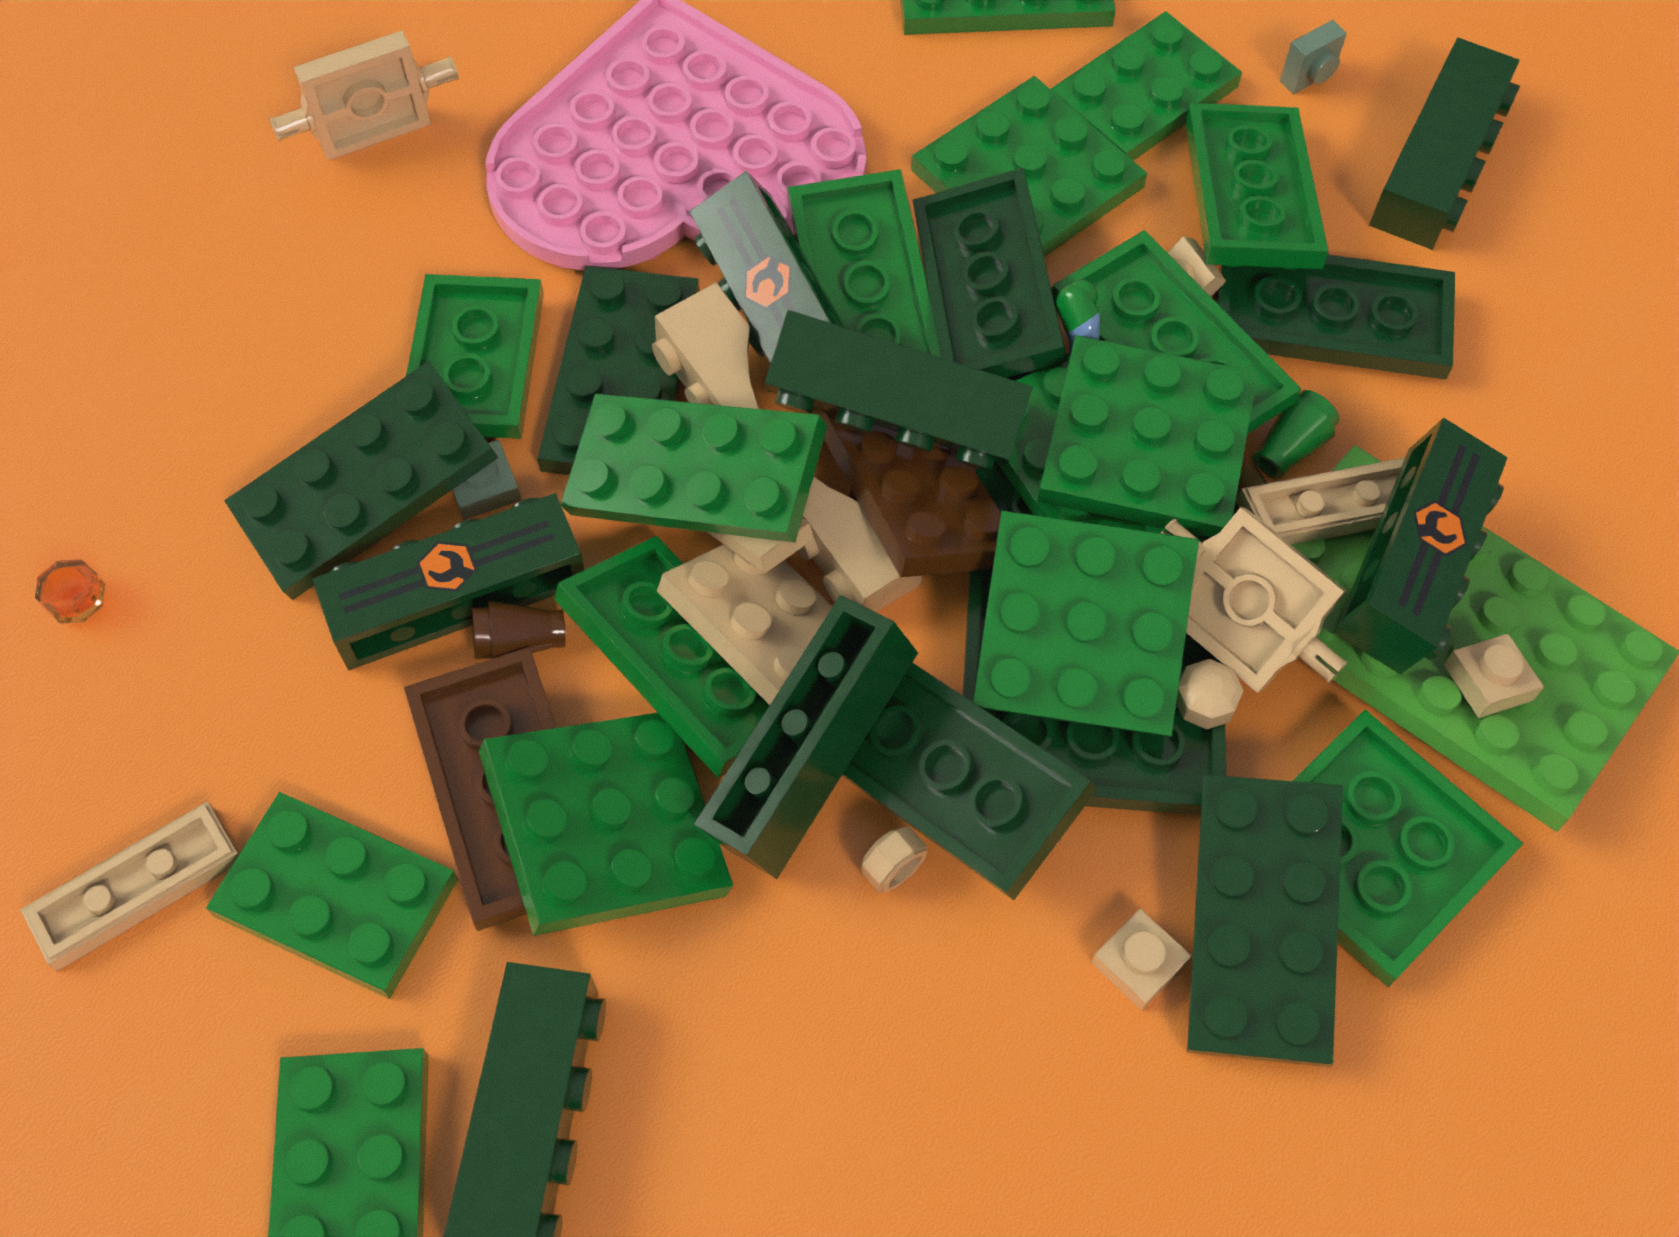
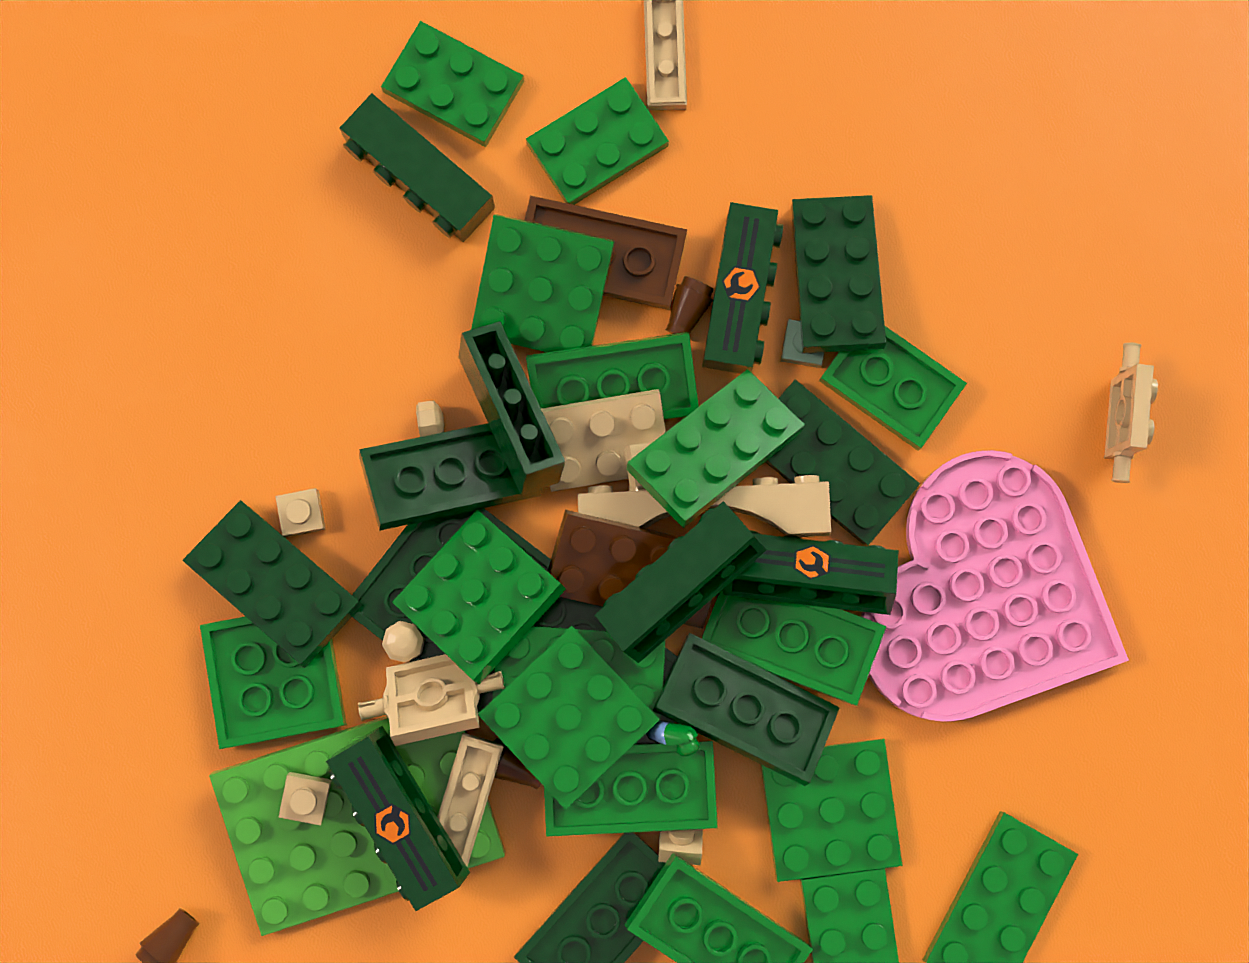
camera: 120 degrees right, 20 degrees up
(70, 591) = (863, 91): clear orange tile -> none
(1296, 434) = (532, 826): green cone -> none

